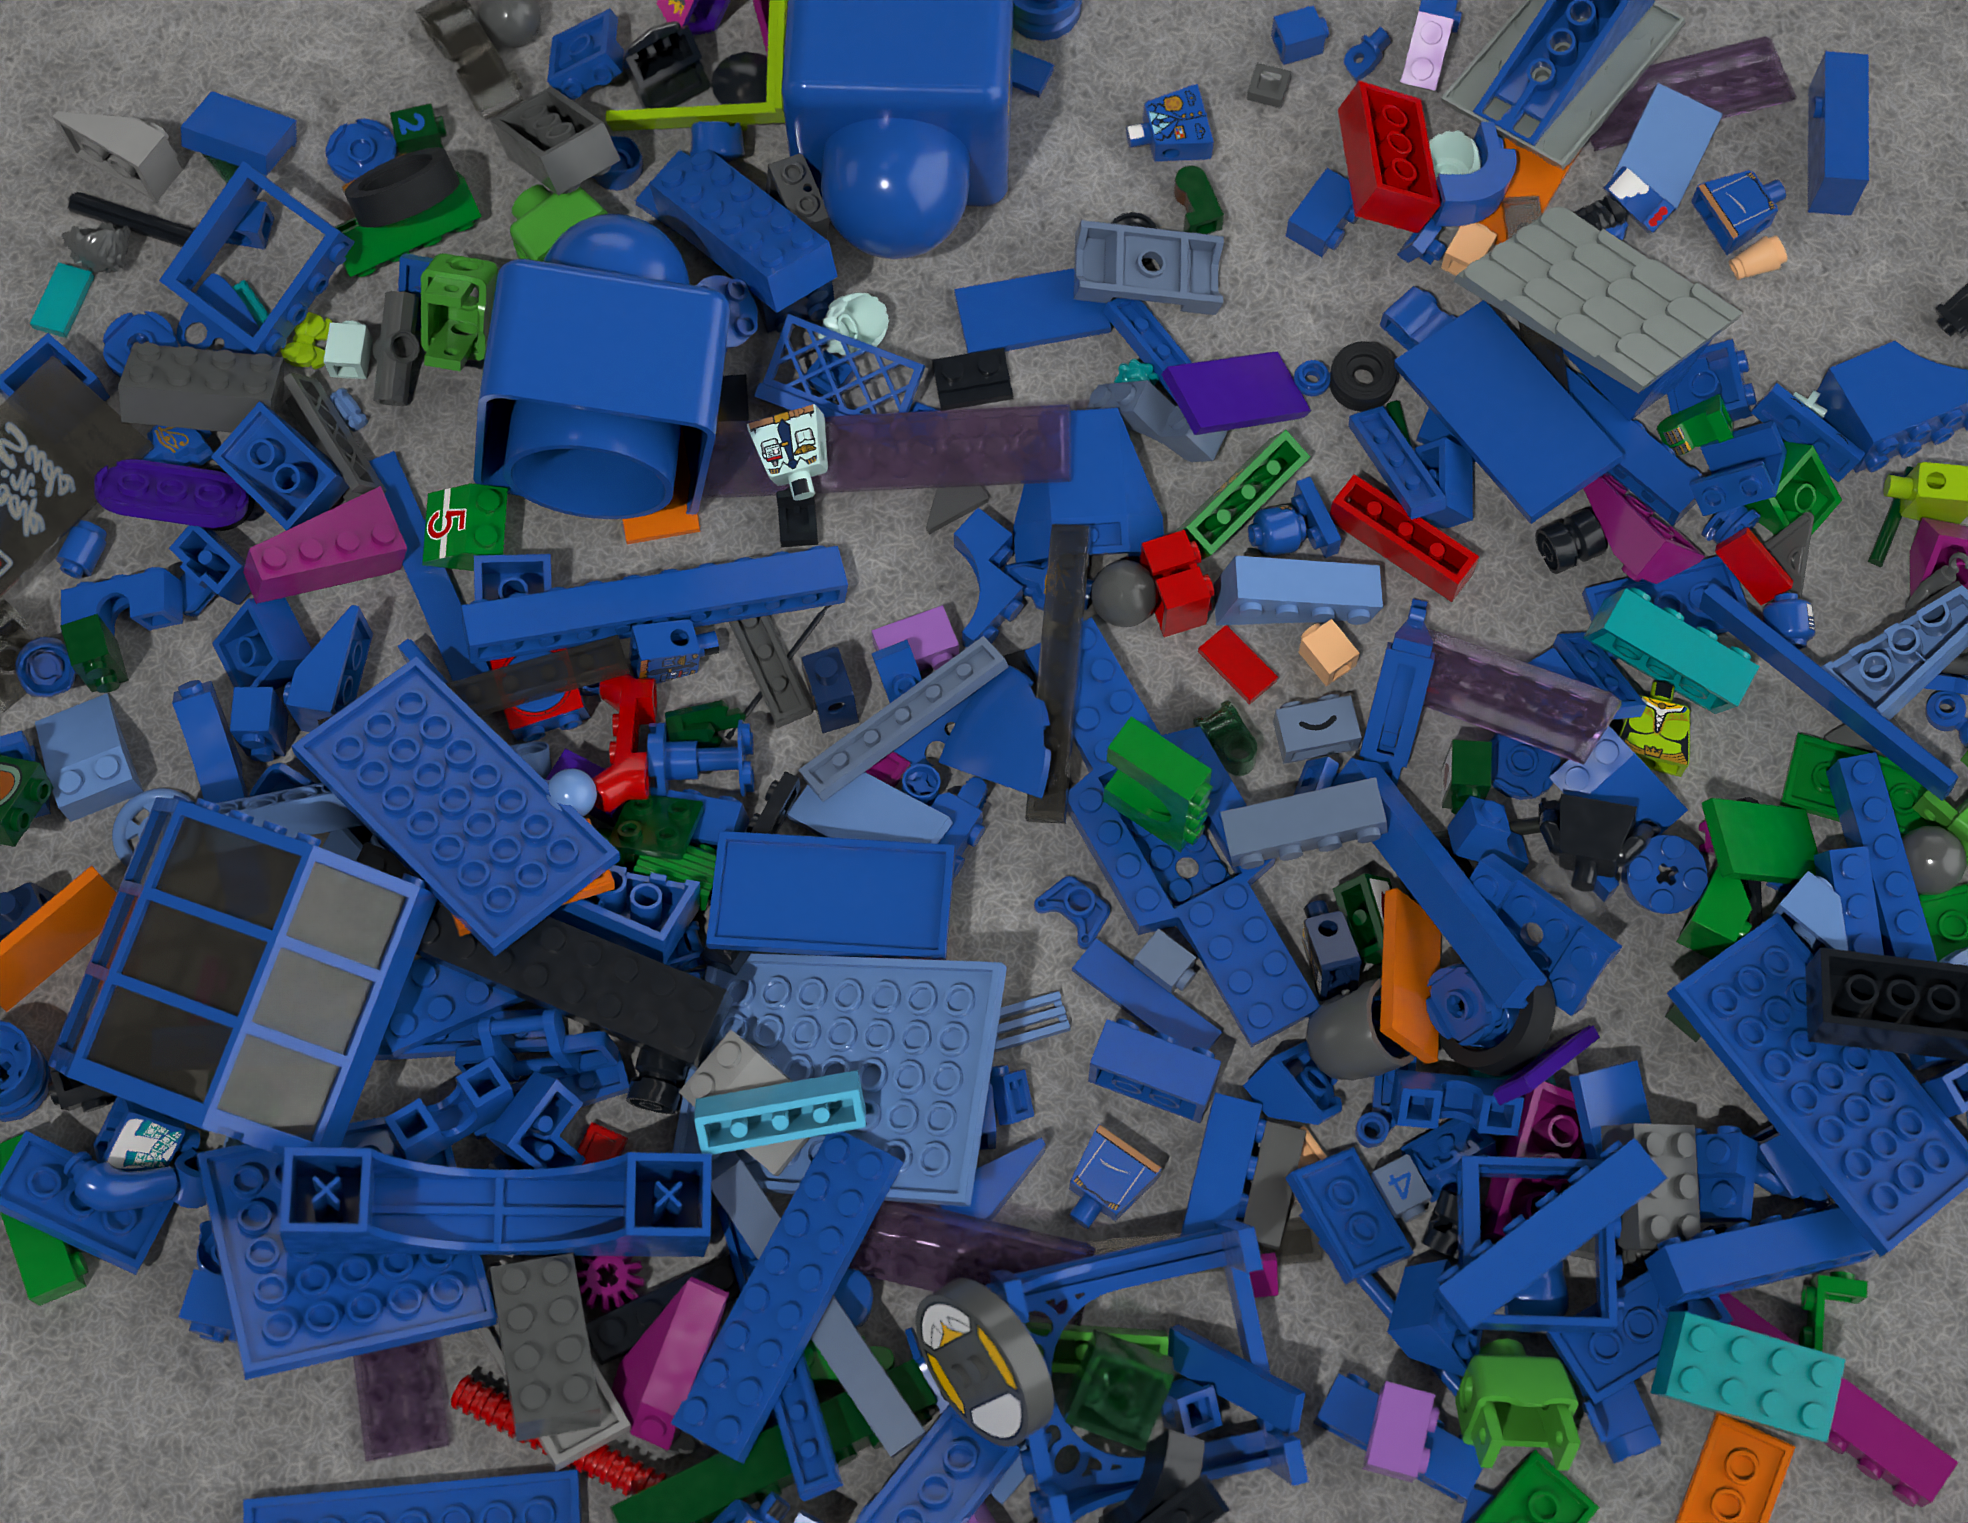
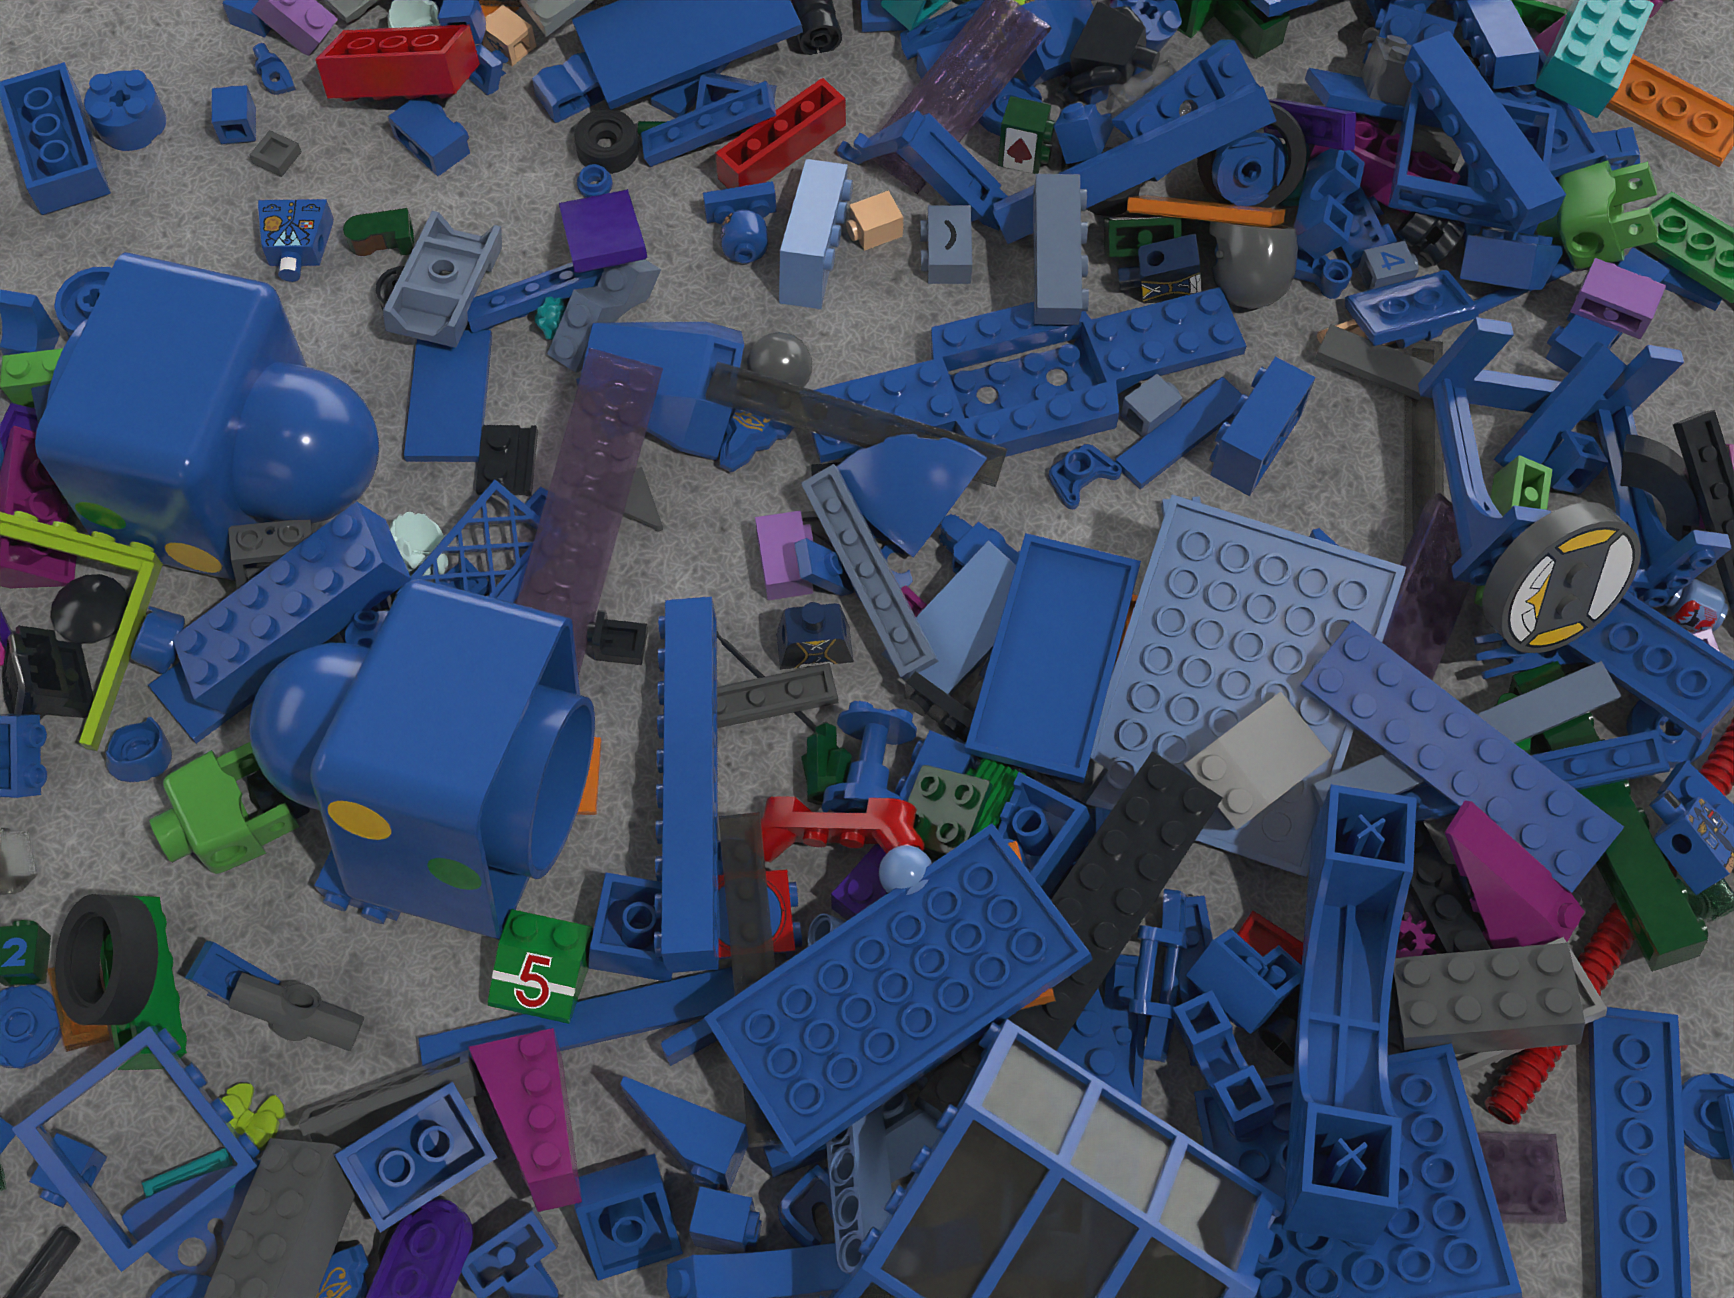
camera: 80 degrees left, 5 degrees down
(348, 350) = (277, 1069): light aqua brick -> none
(348, 409) = (349, 1082): medium blue piece -> none
(451, 309) = (273, 918): bright green piece -> none
(555, 141) = (104, 788): dark grey brick -> none
(657, 1083) = (1205, 869): black wheel -> none
(669, 649) = (738, 773): blue torso -> none
(780, 1113) = (1290, 720): medium azure brick -> none
(792, 448) = (563, 597): light aqua torso -> none
(921, 780) = (936, 572): blue wheel -> none
(1000, 597) = (697, 477): blue arch -> none
(1109, 1178) = (1350, 489): blue torso -> none
(1119, 1390) = (1568, 477): clear green brick -> none
(1158, 785) = (1023, 328): green arch -> none
(1181, 587) = (785, 309): red piece -> none
(1224, 1164) = (1369, 401): blue brick -> none
(1227, 733) = (939, 310): clear green piece -> none
(1238, 664) = (866, 297): red tile -> none
(1244, 492) = (705, 253): green brick -> none
(1294, 1088) = (1288, 327): blue slope -> none
(1317, 775) = (996, 254): blue tile -> none

